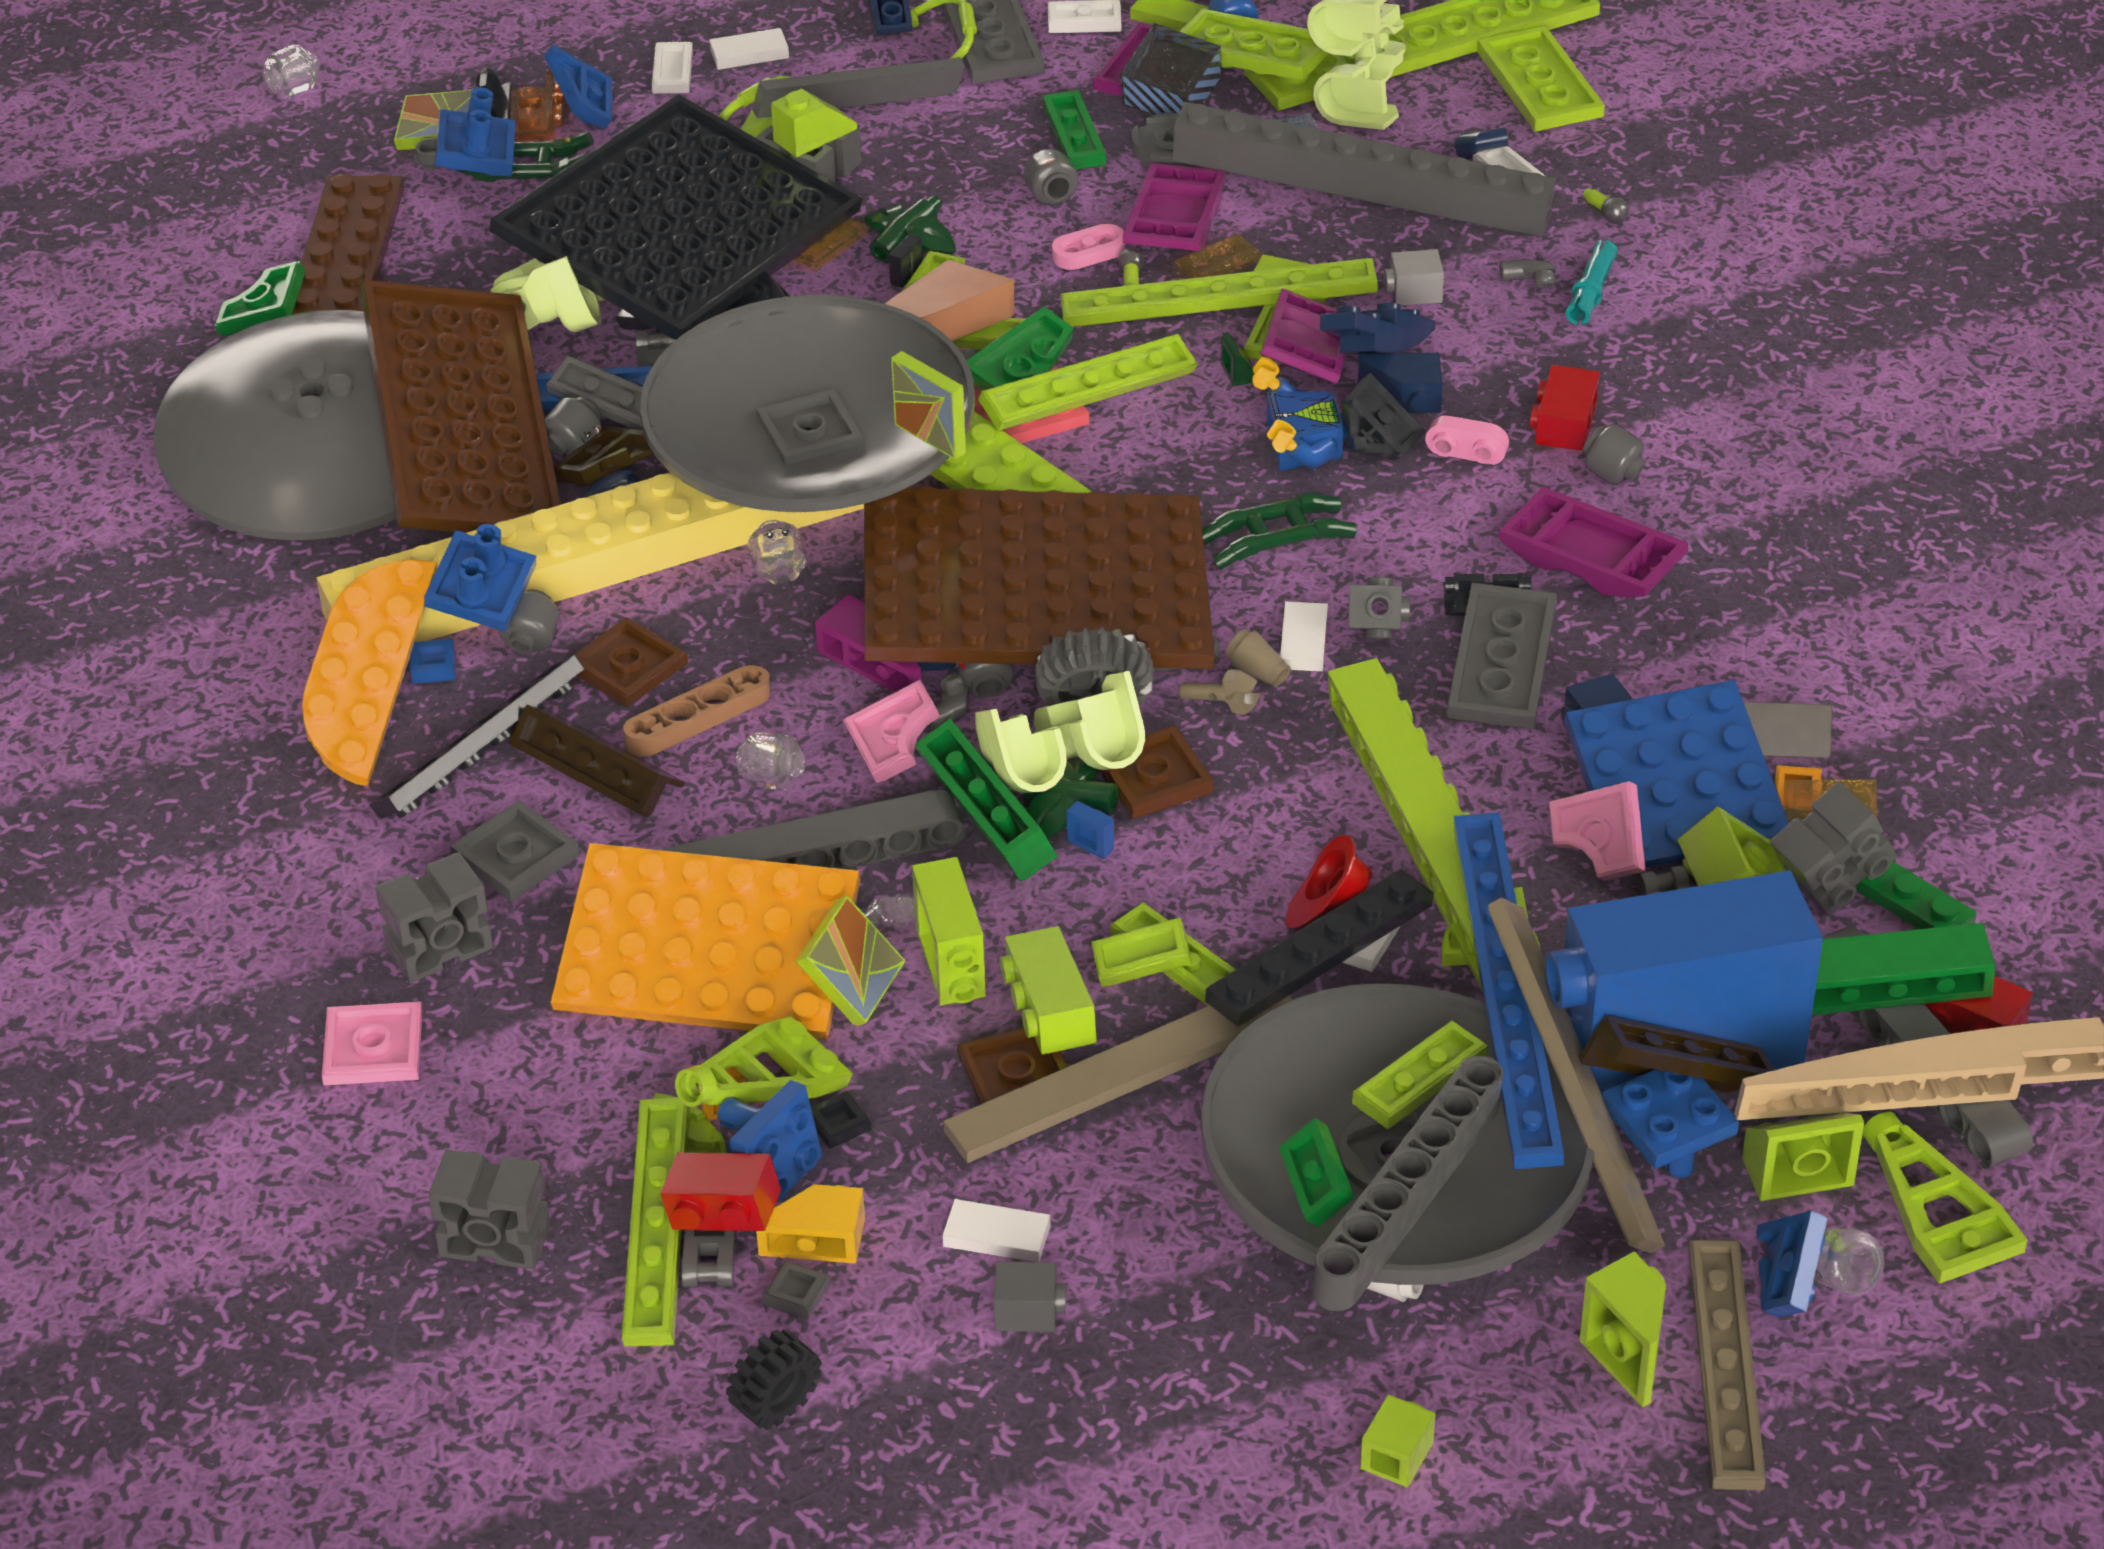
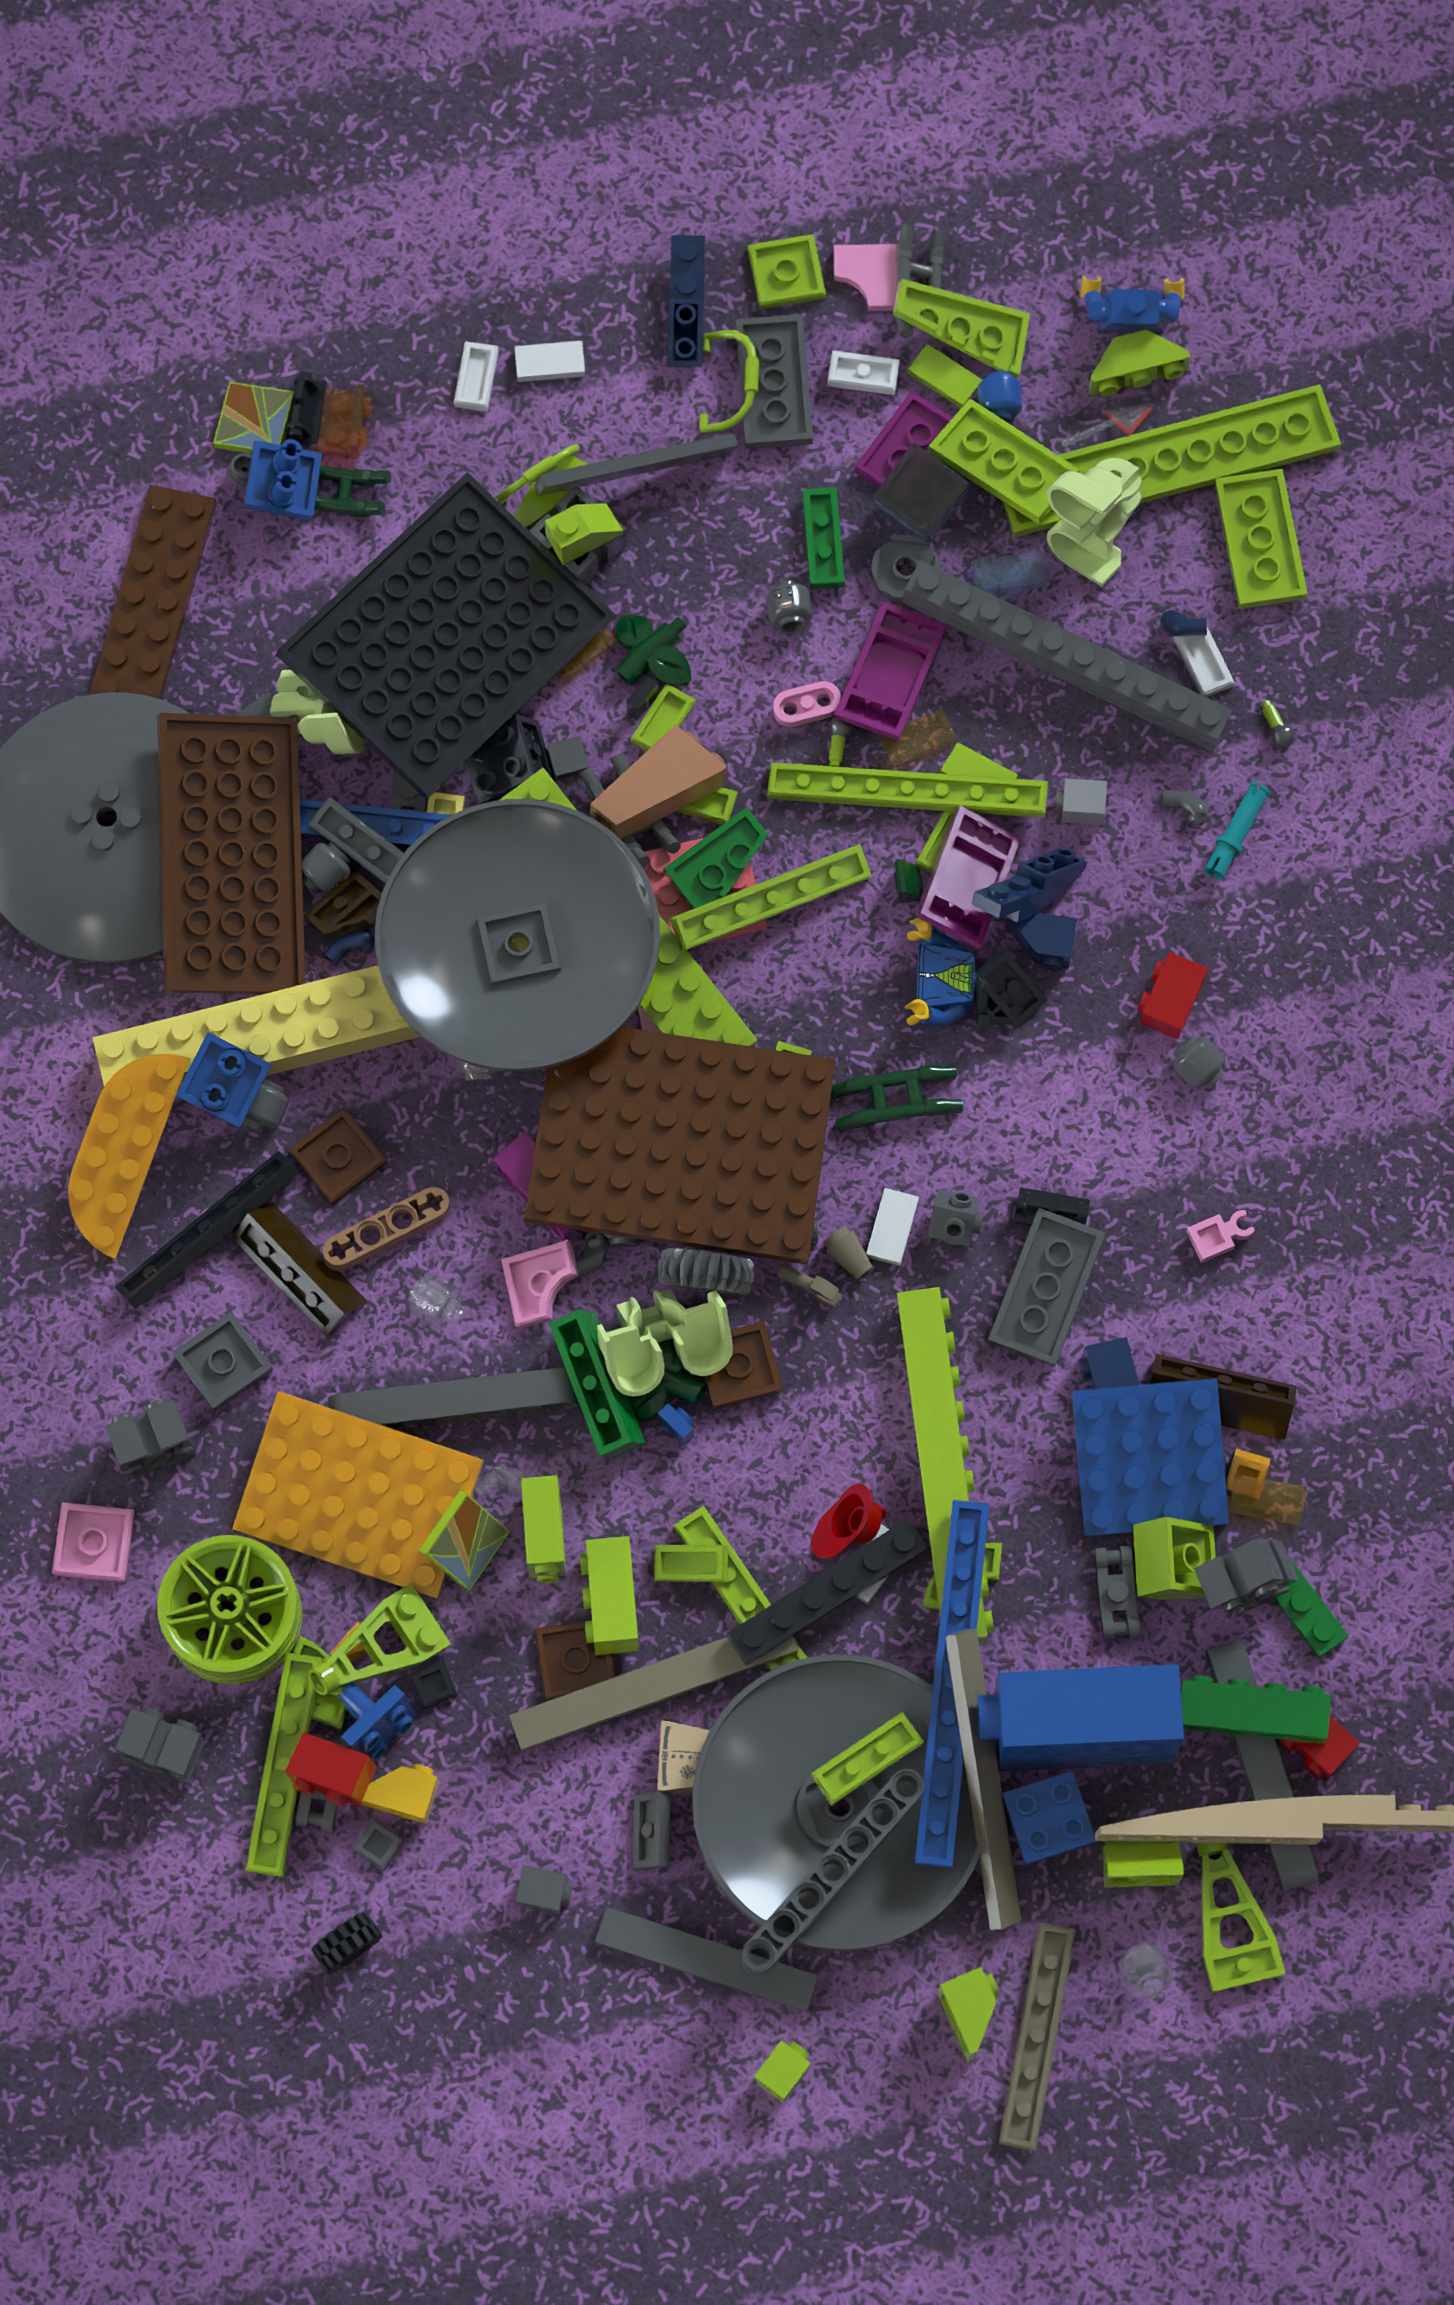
camera: 10 degrees right, 30 degrees up
(265, 300) = (81, 654): green tile -> none
(291, 71) = (129, 331): clear head -> none
(433, 661) = (181, 1133): blue plate -> none
(576, 1049) = (264, 1645): none -> lime wheel
(583, 87) = (390, 406): blue wing -> none
(928, 405) = (610, 993): tile -> none
(996, 1230) = (533, 1815): white tile -> none
(1156, 1216) = (651, 1830): none -> dark grey plate
(1174, 1139) = (679, 1756): none -> tan torso
(1263, 1345) = (704, 1959): none -> dark grey tile
(1316, 1172) = (765, 1853): green plate -> none
(1465, 439) = (1067, 1015): bright pink plate -> none
(1591, 544) = (1153, 1168): magenta slope -> none
(1604, 826) = (1078, 1502): bright pink tile -> none
(1646, 1047) = (1069, 1778): dark brown panel -> none
(1686, 593) = (1215, 1237): none -> bright pink plate
(1791, 1262) = (1103, 1966): blue wing -> none

